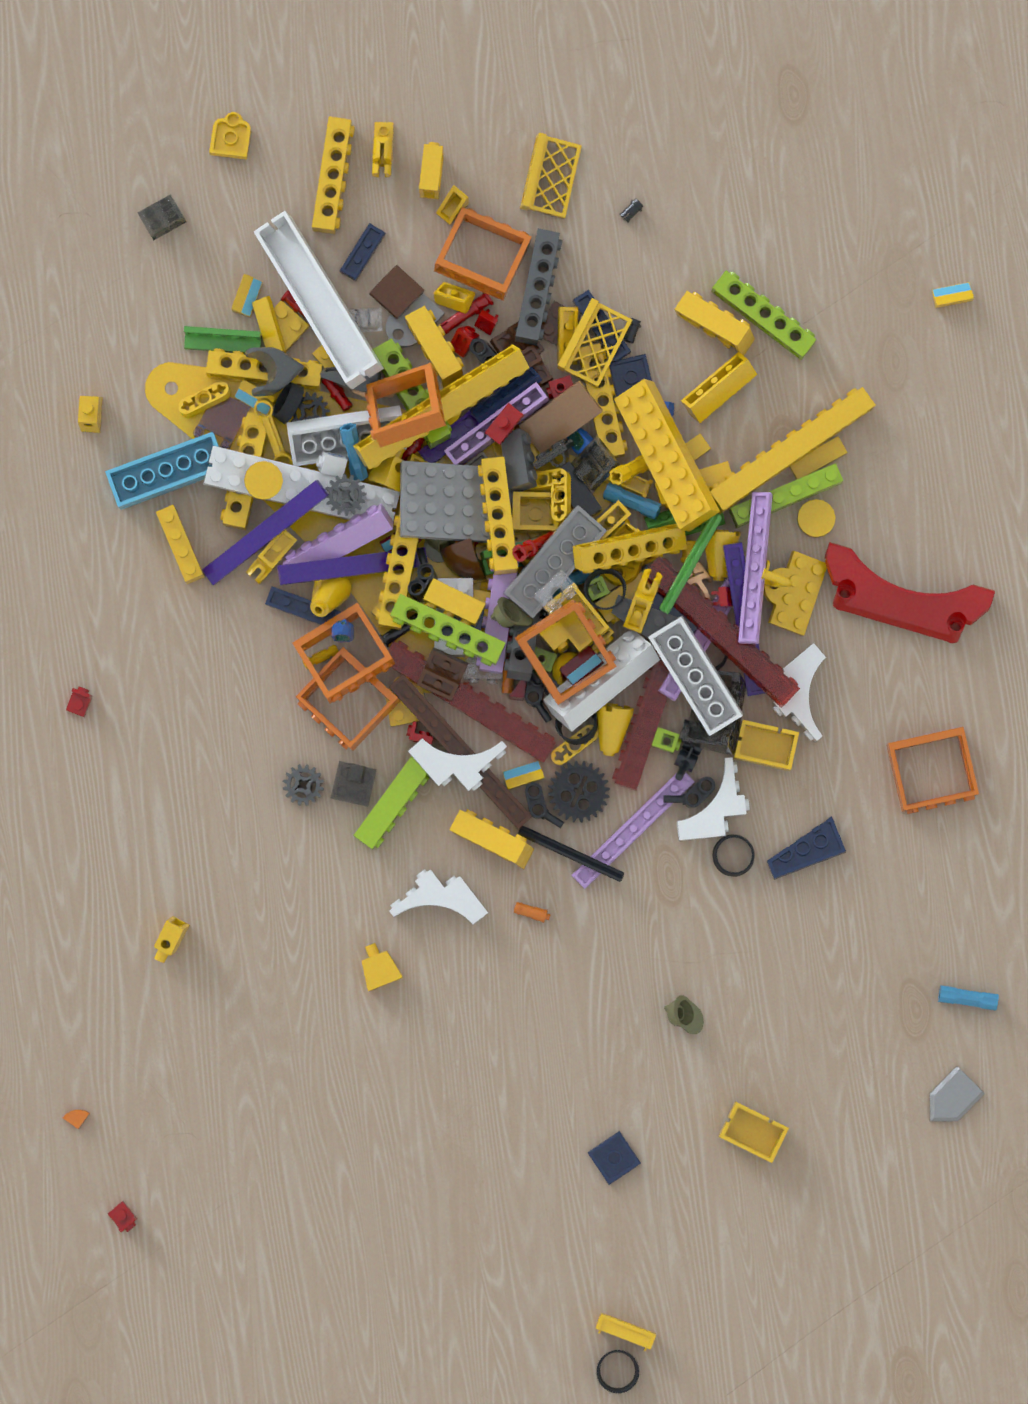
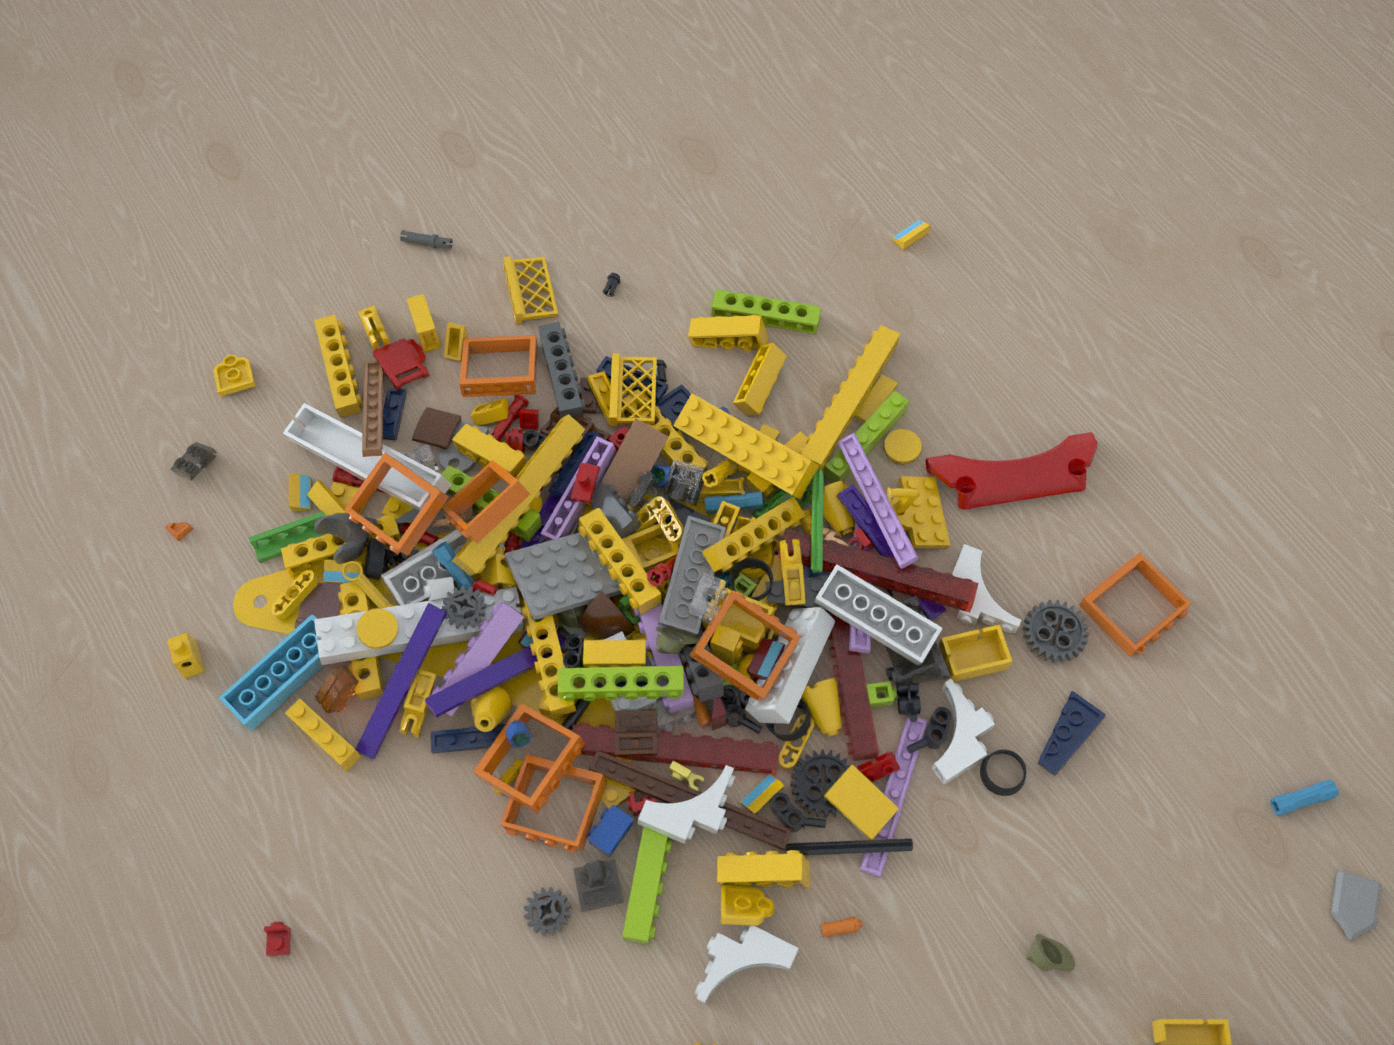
camera: 25 degrees left, 20 degrees down
(124, 280) = (179, 530): none -> orange tile
(207, 511) = (336, 689): none -> clear orange brick
(346, 248) = (373, 410): none -> medium nougat tile
(365, 383) = (421, 521): none -> orange window
(369, 479) = (485, 587): none -> red arm
(383, 745) = (610, 830): none -> blue brick
(393, 197) = (401, 358): none -> red piece
(462, 858) = (744, 905): none -> yellow plate
(464, 725) = (681, 774): none -> light yellow plate
(480, 73) = (432, 240): none -> dark grey pin
(599, 823) = (861, 802): none -> yellow tile
(621, 801) = (884, 766): none -> red hinge
(860, 772) = (1074, 638): none -> dark grey gear

